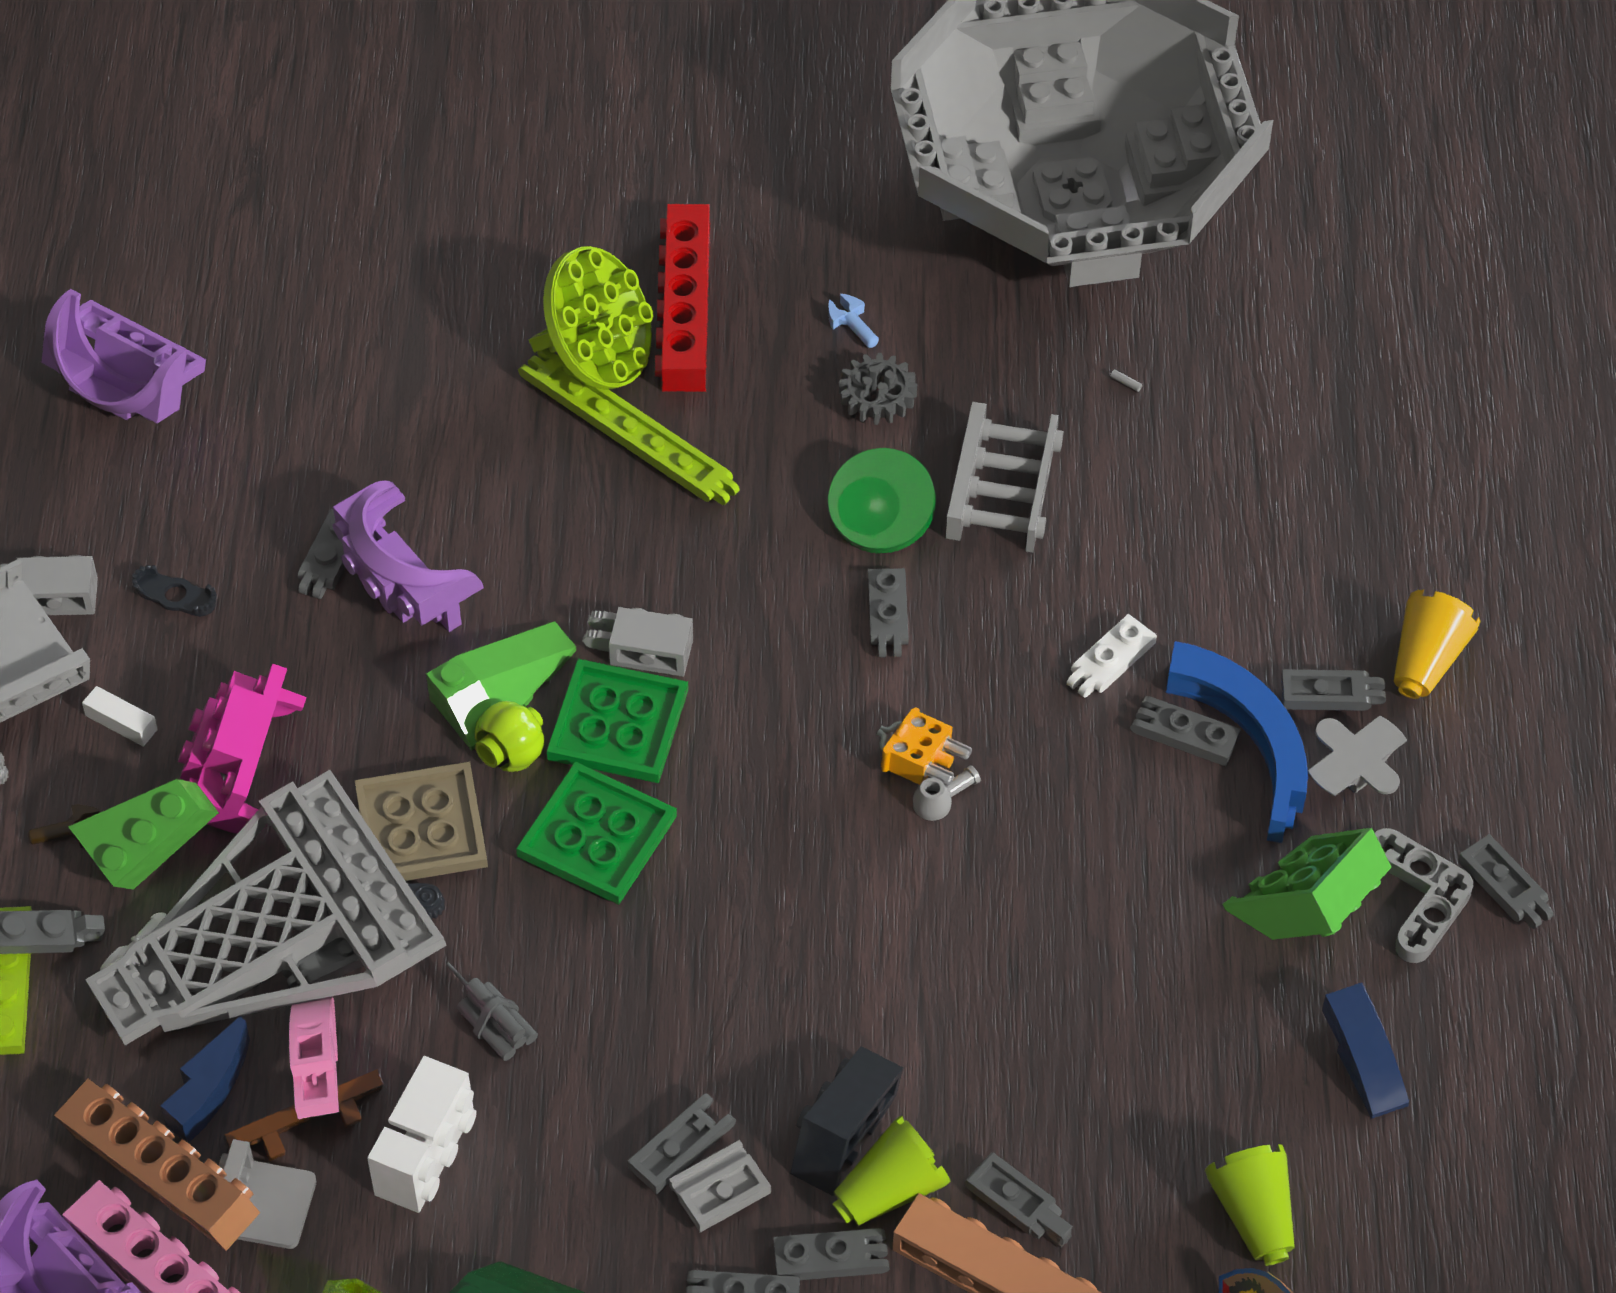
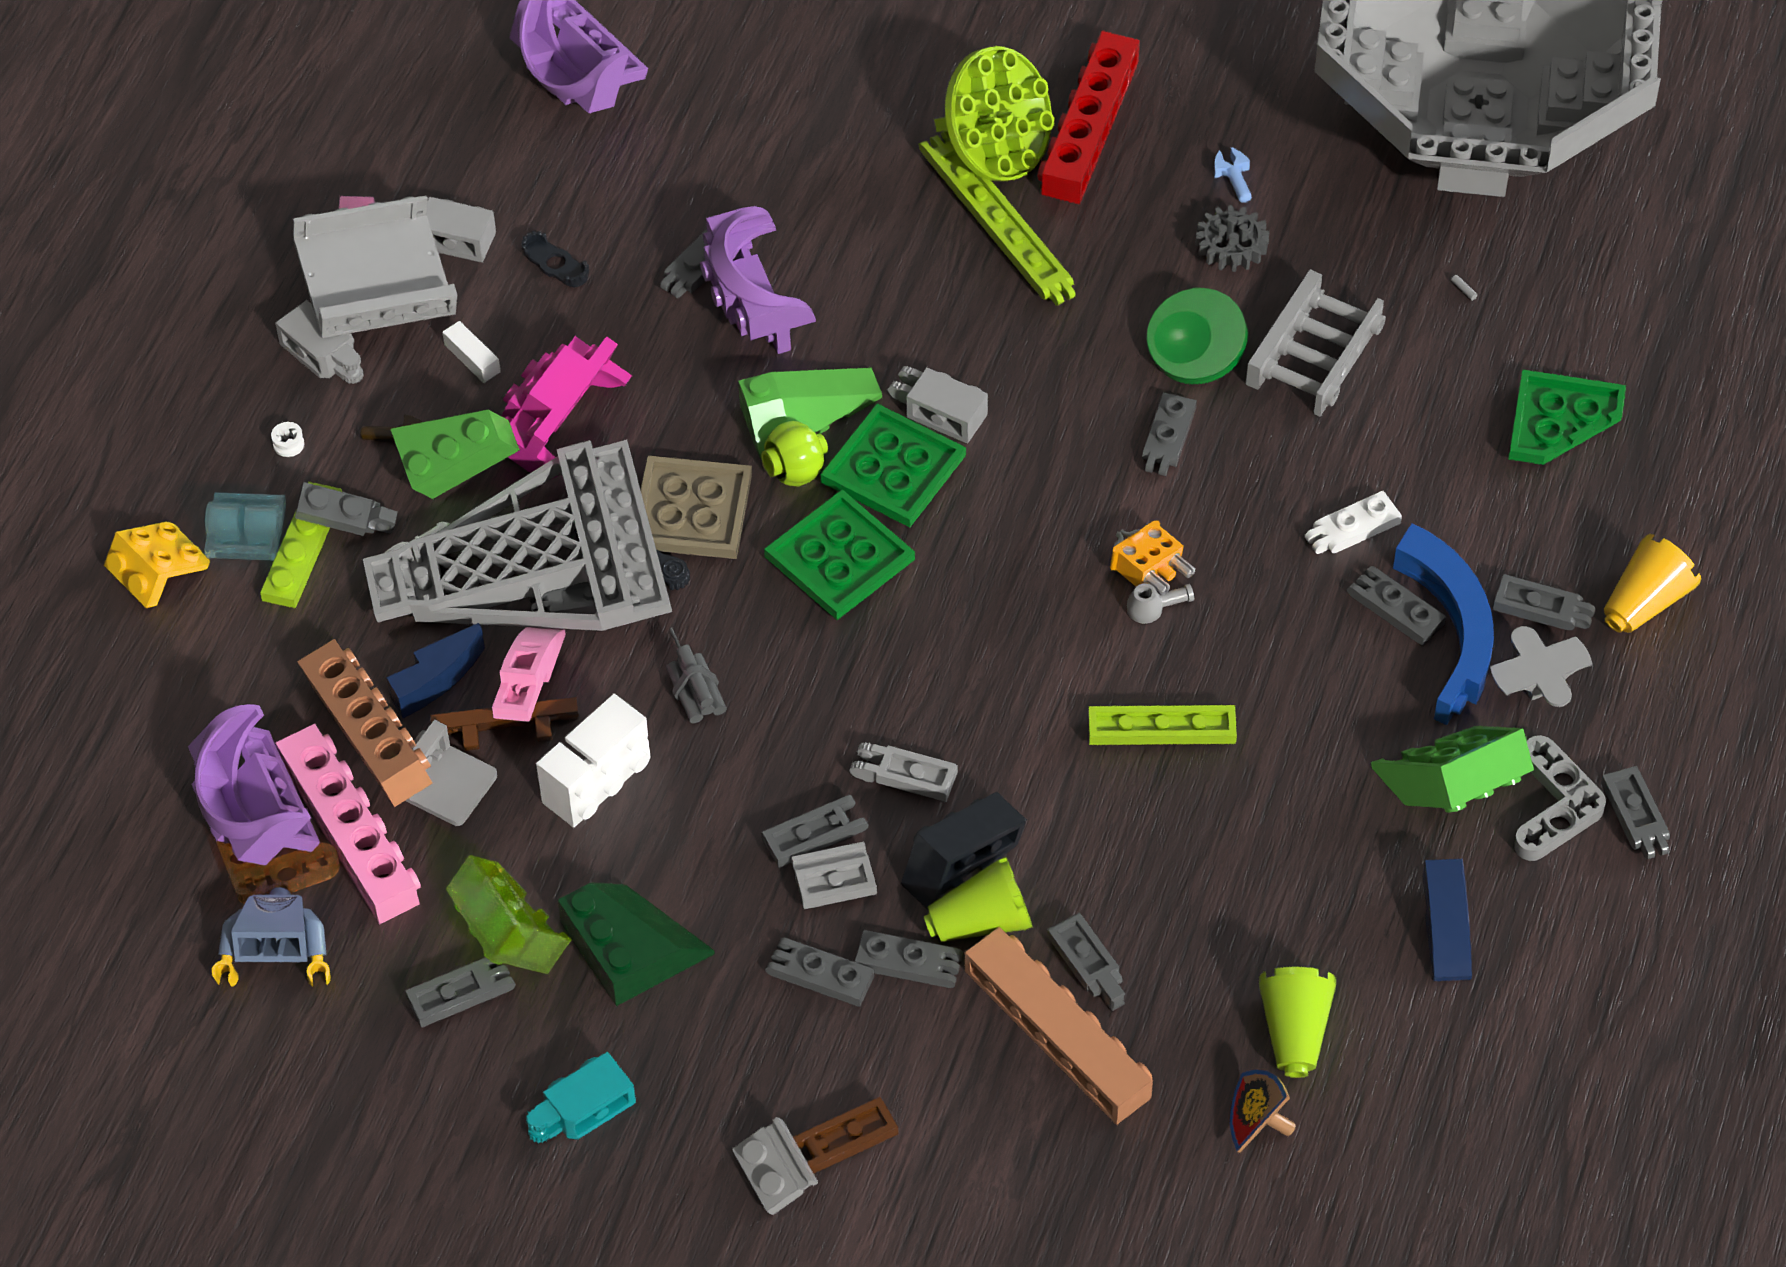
camera: 20 degrees right, 0 degrees up
(752, 1049) = (905, 770): none -> light grey hinge
(999, 924) = (1162, 725): none -> lime plate
(1272, 487) = (1560, 414): none -> green plate

